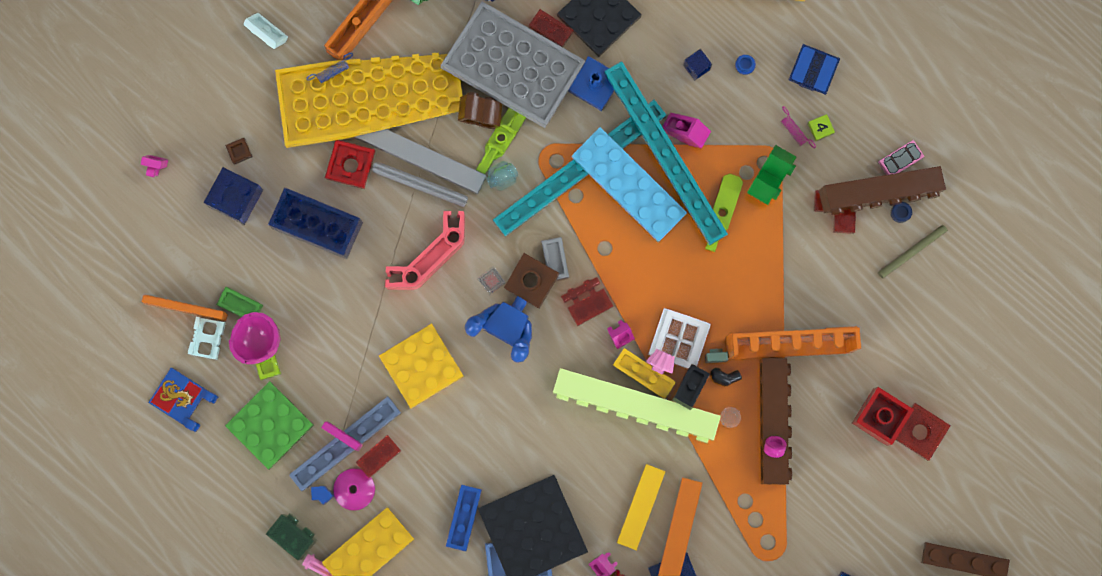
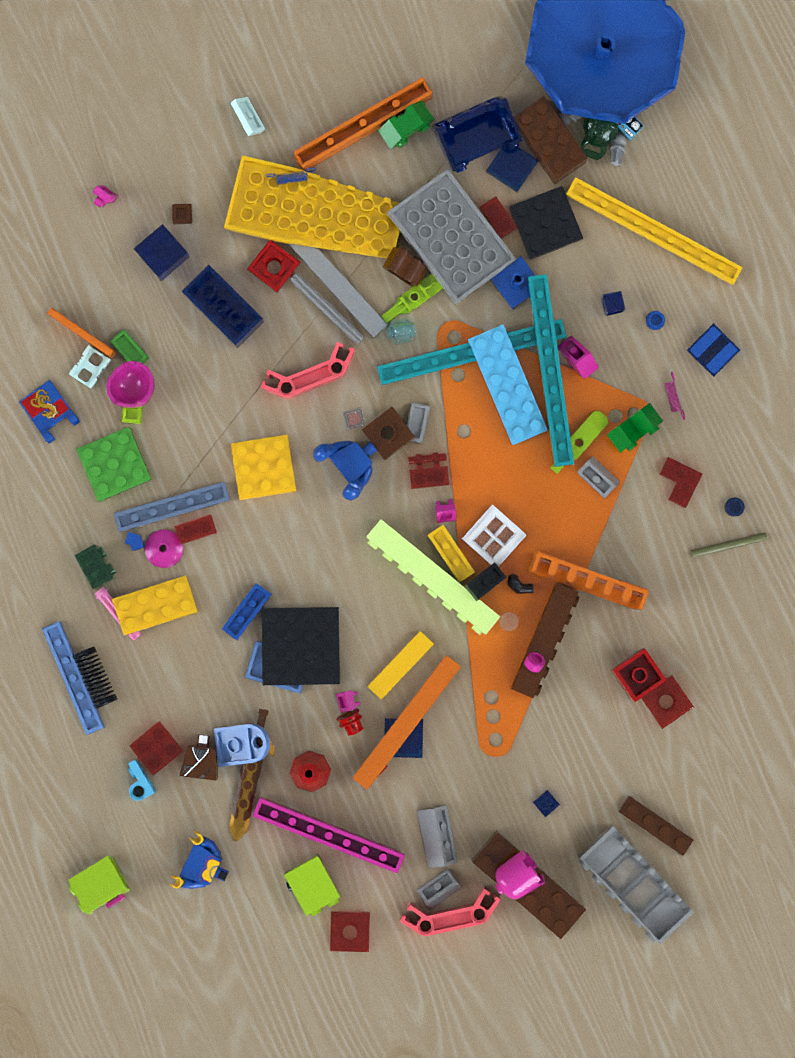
camera: 20 degrees right, 5 degrees up
(342, 436) = (172, 499): dark pink tile -> none
(661, 361) = (469, 550): bright pink piece -> none
(716, 356) = (519, 564): sand green plate -> none
(756, 238) = (598, 477): none -> light grey slope
(821, 127) = (697, 404): lime tile -> none
(881, 190) = (724, 480): reddish brown brick -> none
(901, 158) = (755, 460): tile -> none

